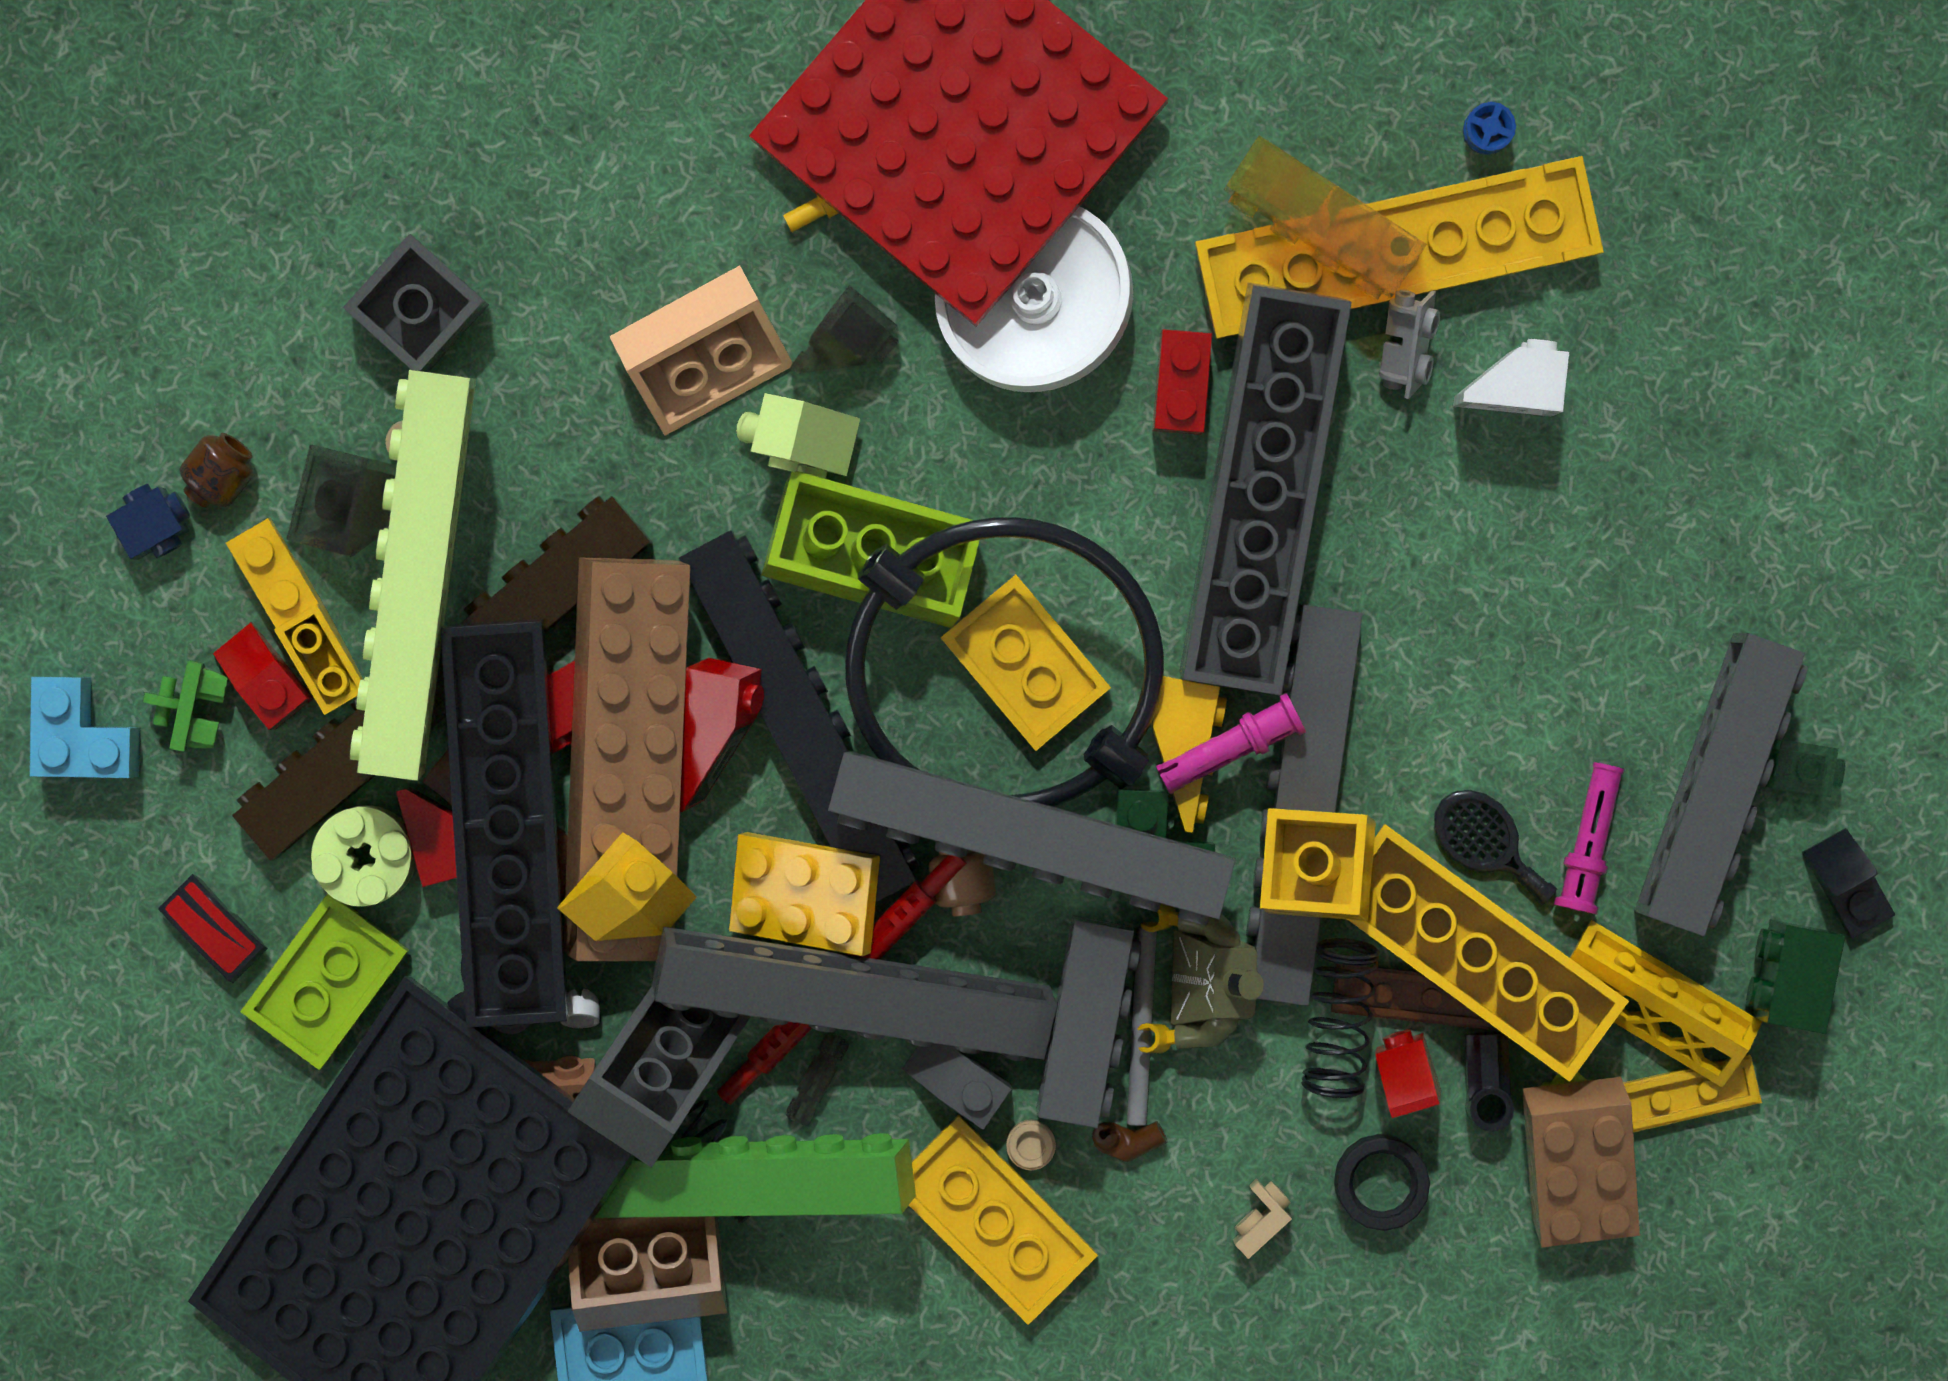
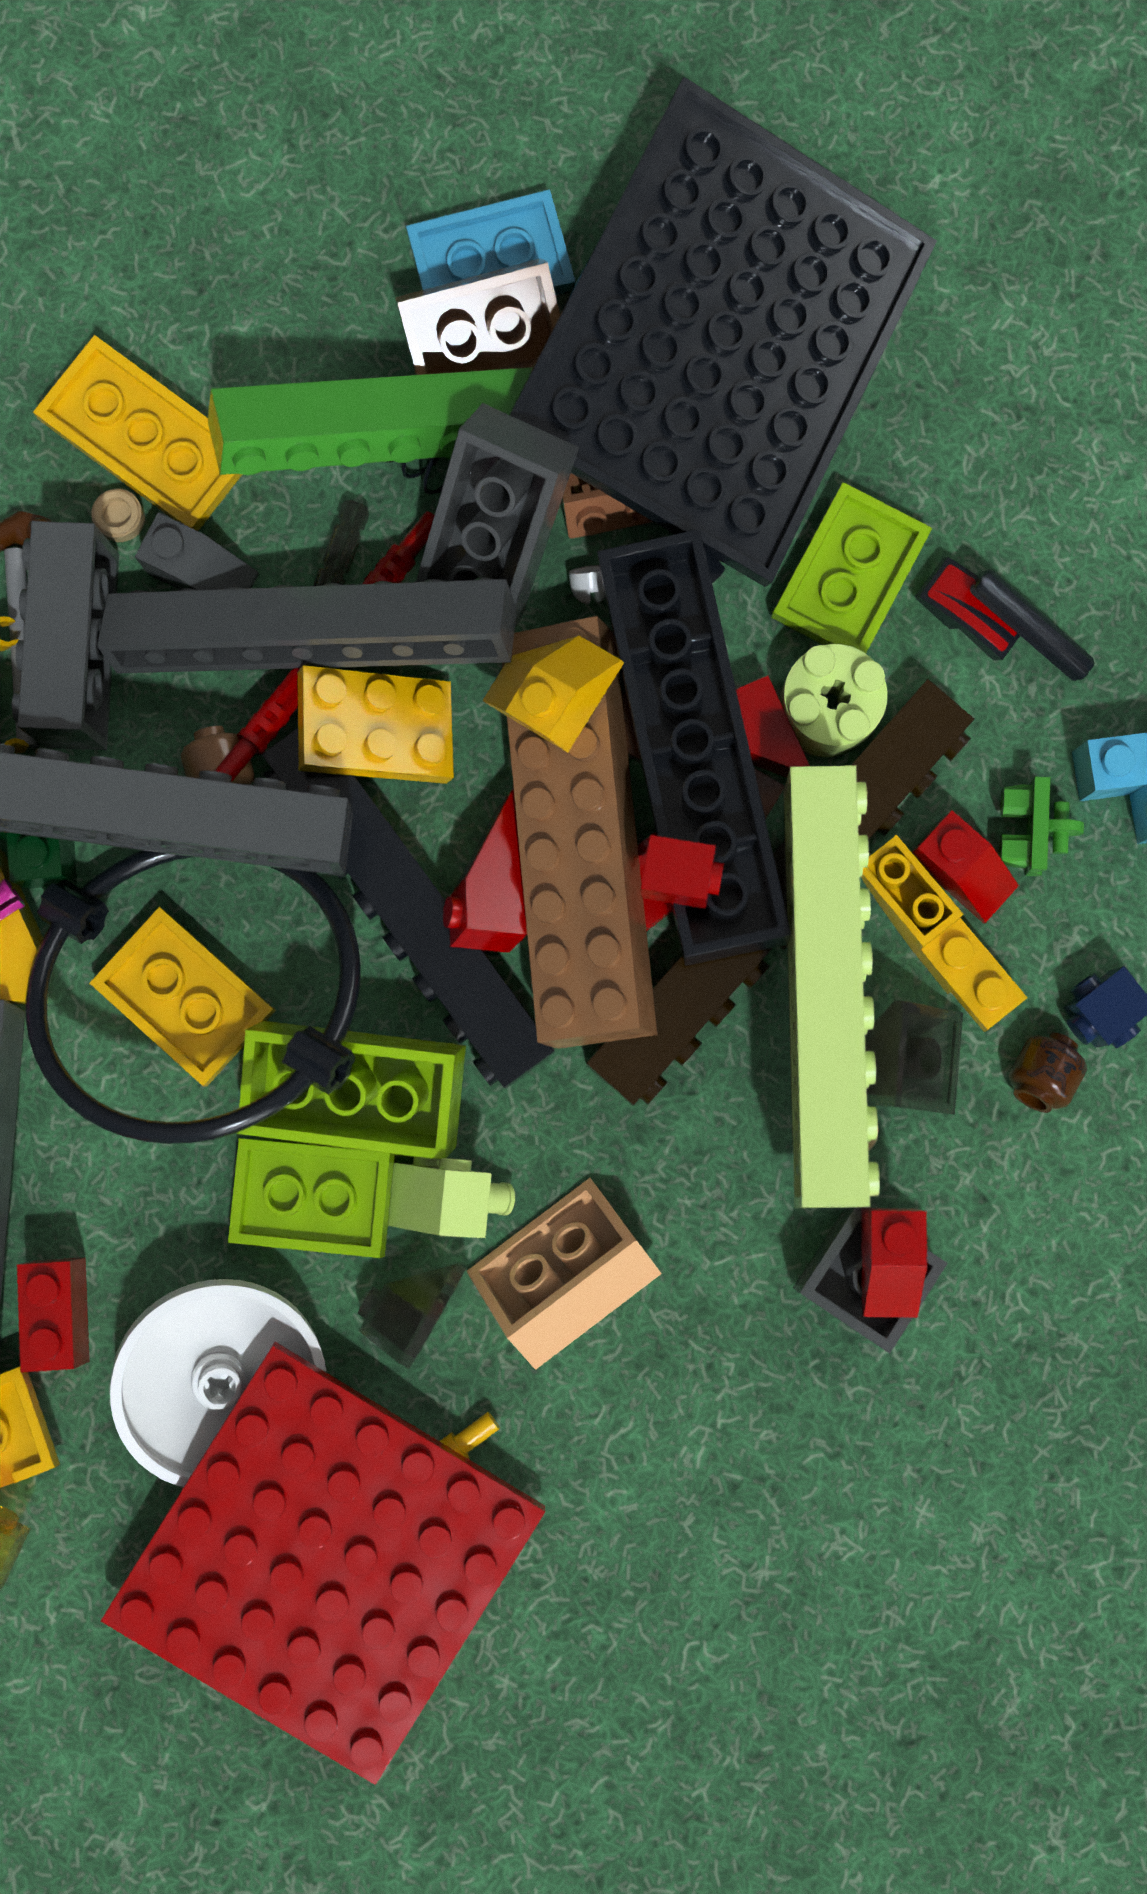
camera: 170 degrees right, 5 degrees down
(159, 901) = (1032, 625): none -> black axle
(394, 316) = (893, 1261): none -> red slope
(532, 698) = (680, 872): none -> red brick
(927, 454) = (311, 1198): none -> lime plate

